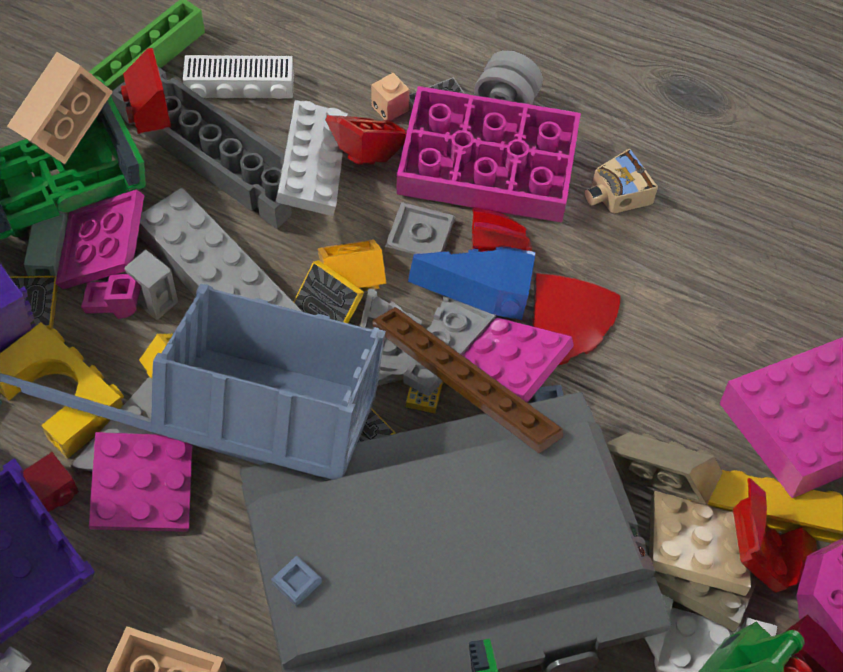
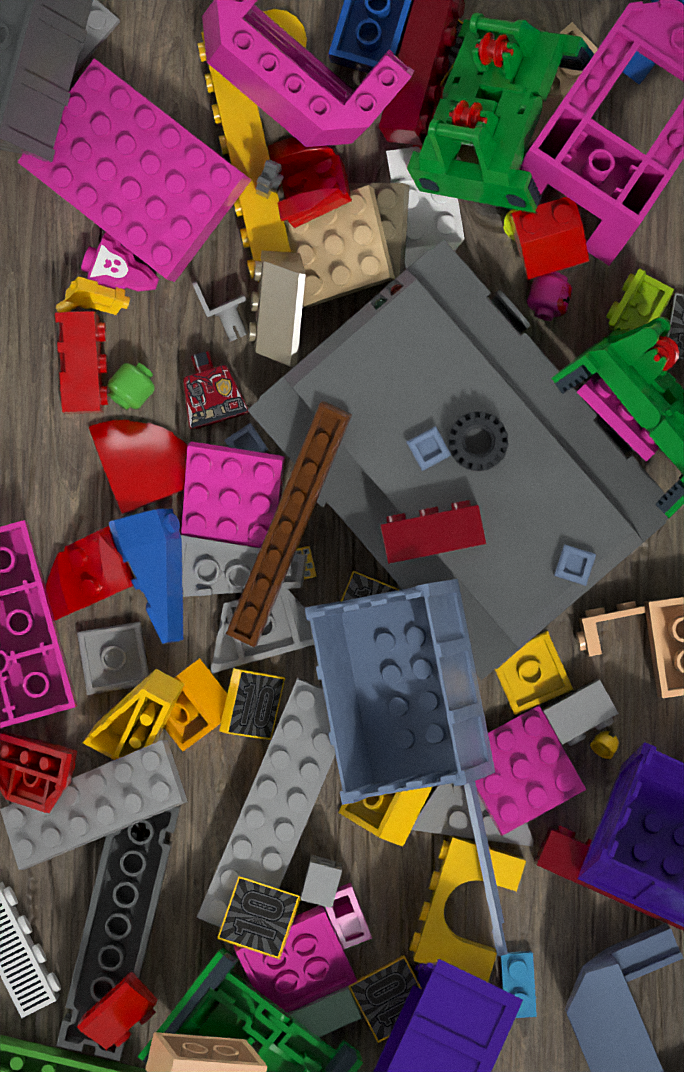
camera: 115 degrees left, 30 degrees up
(118, 567) = (605, 745): none -> yellow hinge
(151, 215) = (259, 918): none -> tile
(160, 559) = (580, 712): none -> light grey brick
(219, 539) = (533, 674): none -> yellow tile
(226, 601) = (588, 636): none -> light nougat bracket
(361, 214) = (137, 717): none -> yellow wedge
(395, 468) = (433, 532): none -> dark red brick
(454, 564) = (498, 436): none -> black tyre
(475, 504) = (428, 448): none -> sand blue tile
(609, 388) = (211, 394): none -> torso
(641, 333) = (131, 386): none -> bright green head
(676, 433) = (227, 313): none -> light grey bracket
(679, 305) = (82, 362): none -> red wedge
(737, 332) = (89, 294): none -> yellow piece
(746, 358) = (116, 267): none -> dark pink rock
(789, 504) = (270, 179): none -> dark grey plate

